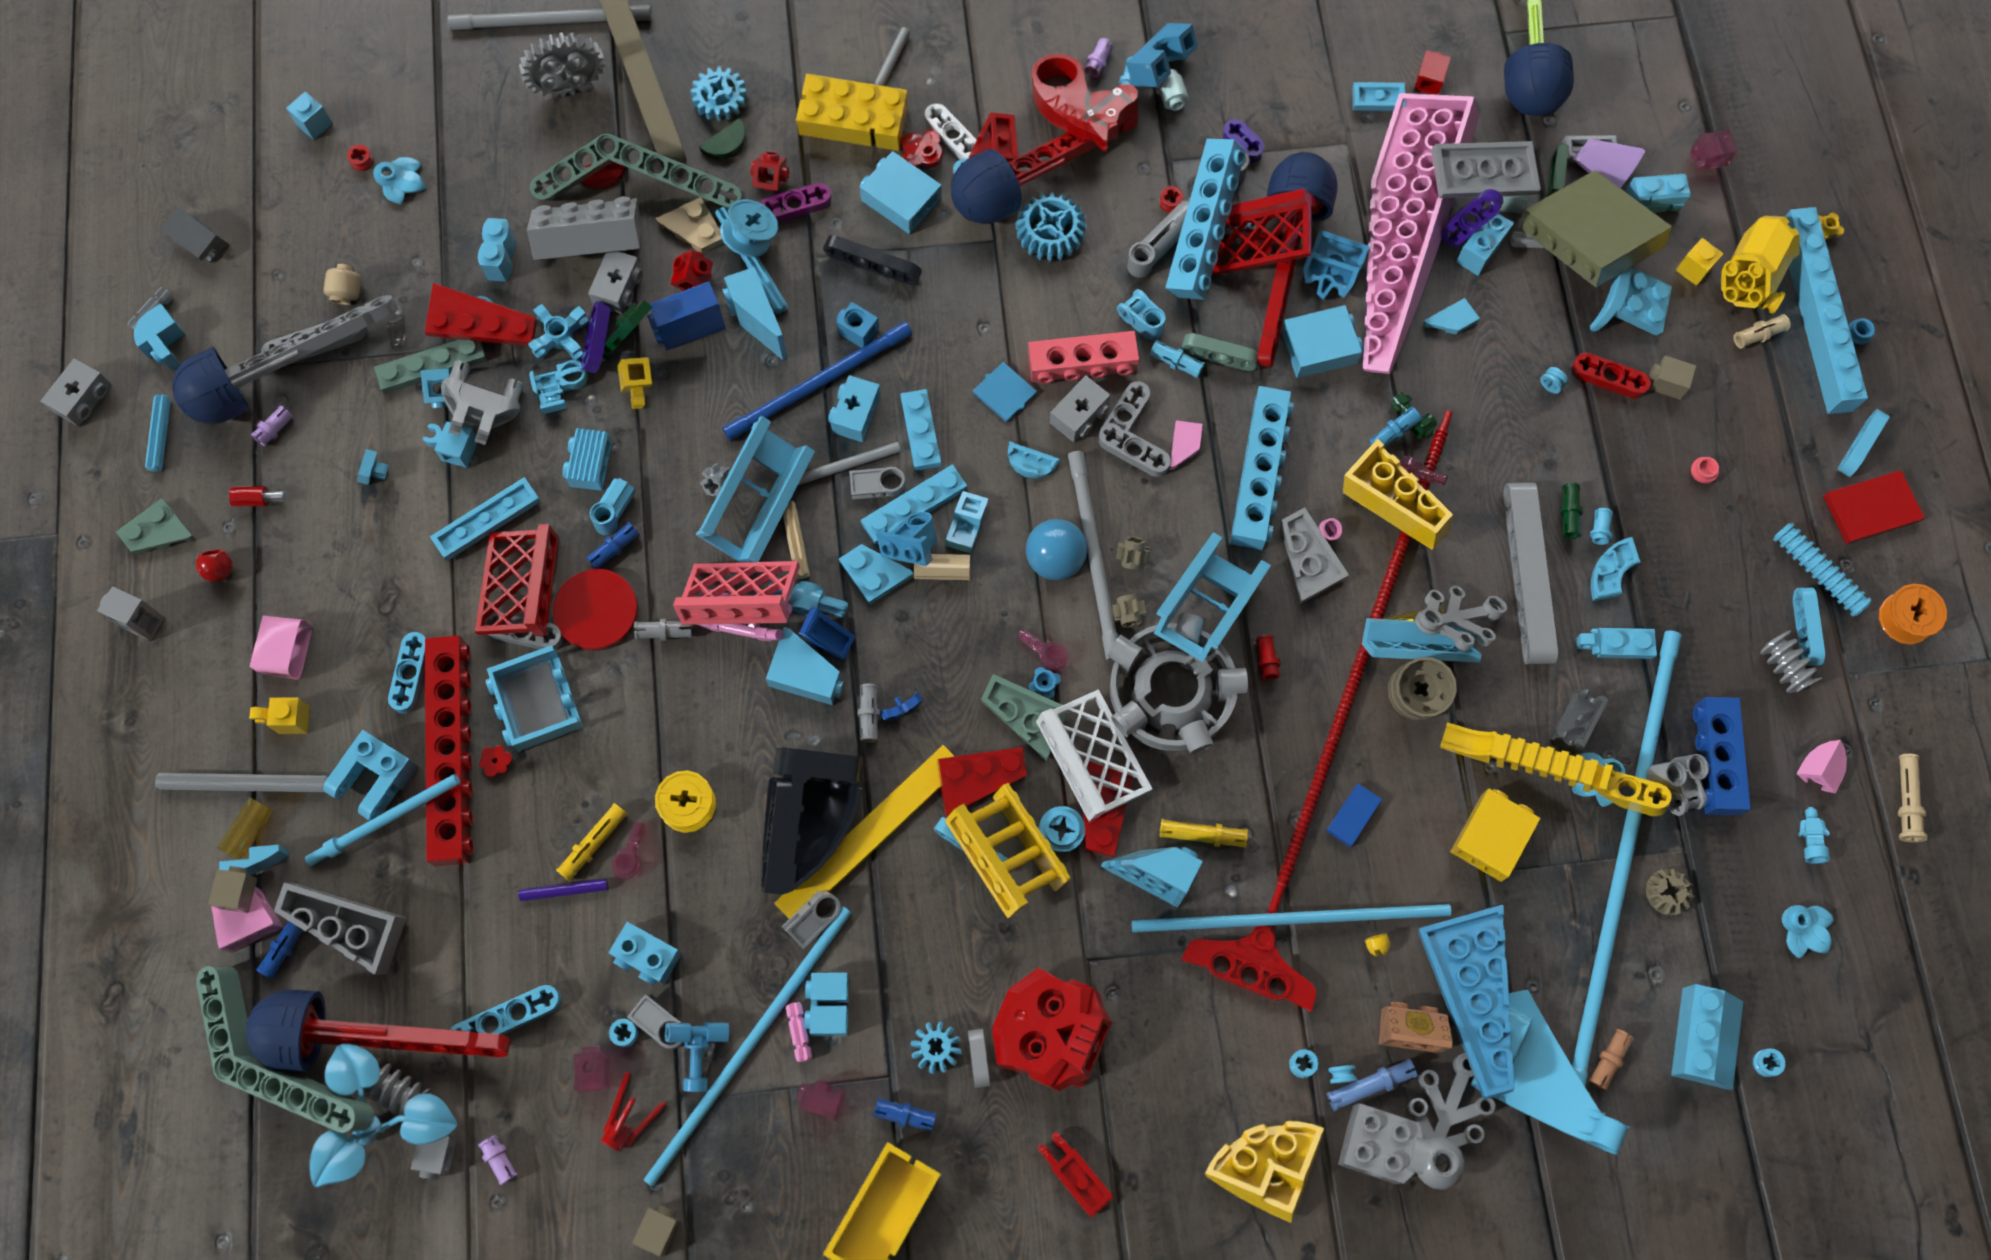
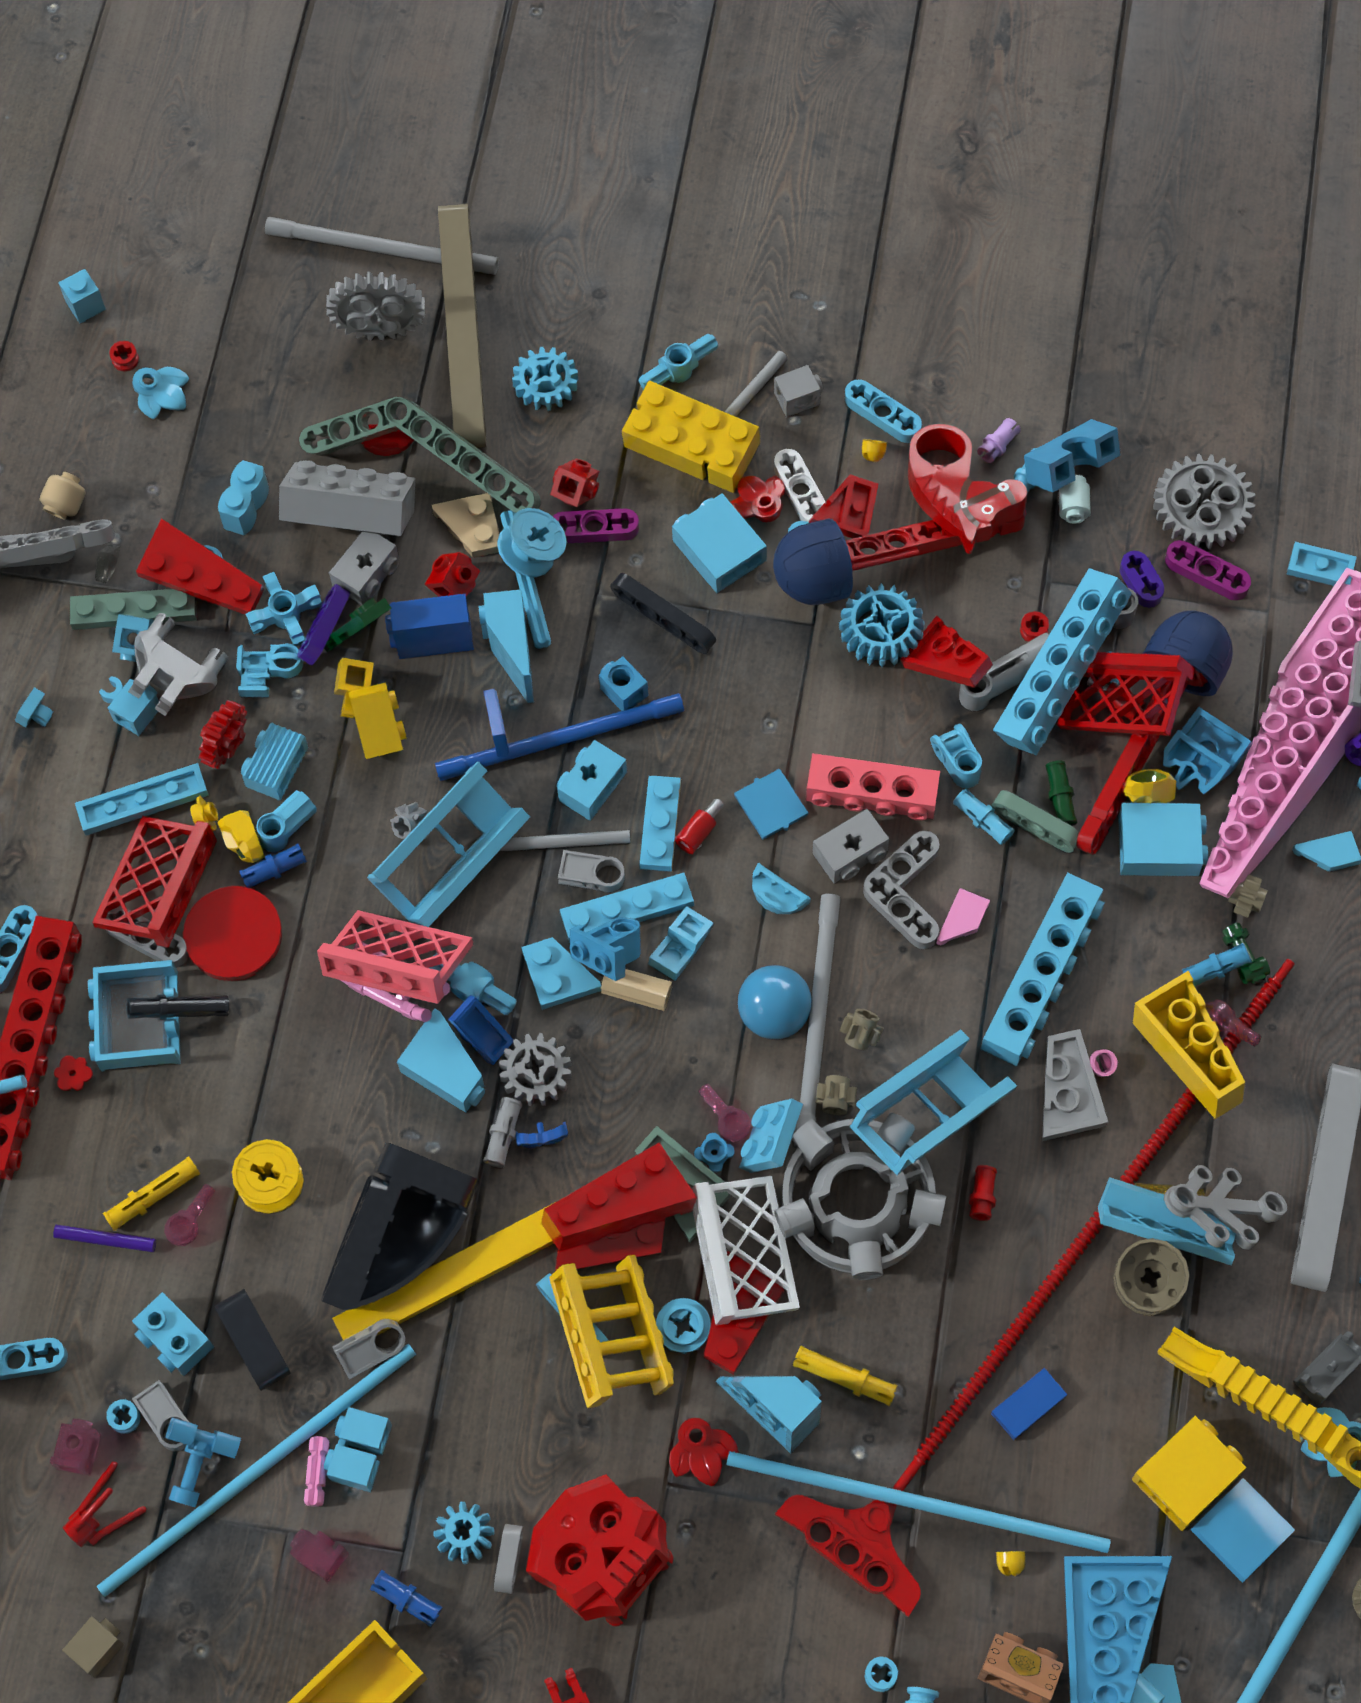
camera: 20 degrees right, 5 degrees down
(539, 448) = (222, 734): none -> red gear
(542, 515) = (204, 812): none -> yellow plate
(556, 686) = (169, 1007): none -> black pin
(579, 528) = (241, 836): none -> yellow rock
(662, 629) = (299, 975): light grey pin -> none
(664, 404) = (376, 720): none -> yellow brick
(713, 939) = (252, 1339): none -> black beam
(726, 142) = (537, 436): dark green tile -> none
(764, 381) = (496, 722): none -> tile
(795, 539) = (479, 913): tan axle -> none
(831, 48) = (679, 352): none -> medium azure axle
(871, 661) = (547, 1065): none -> light grey gear
(927, 55) = (797, 390): none -> light grey brick
(953, 425) = (698, 828): none -> red piece
(990, 737) = (625, 1197): none -> red wedge
(996, 47) = (888, 423): none -> medium azure beam
(1001, 89) = (873, 449): none -> yellow hinge
(1088, 657) = (770, 1135): none -> medium azure plate
(1110, 930) = (702, 1456): none -> red plate
(1112, 237) = (947, 656): none -> red wing
(1231, 323) = (1061, 792): none -> dark green pin
(1253, 58) = (1226, 517): none -> light grey gear
(1286, 112) = (1183, 568): none -> magenta beam
(1302, 301) = (1150, 786): none -> yellow rock
(1403, 369) = (1248, 896): none -> dark tan gear
(1549, 867) = (1242, 1530): none -> dark azure slope

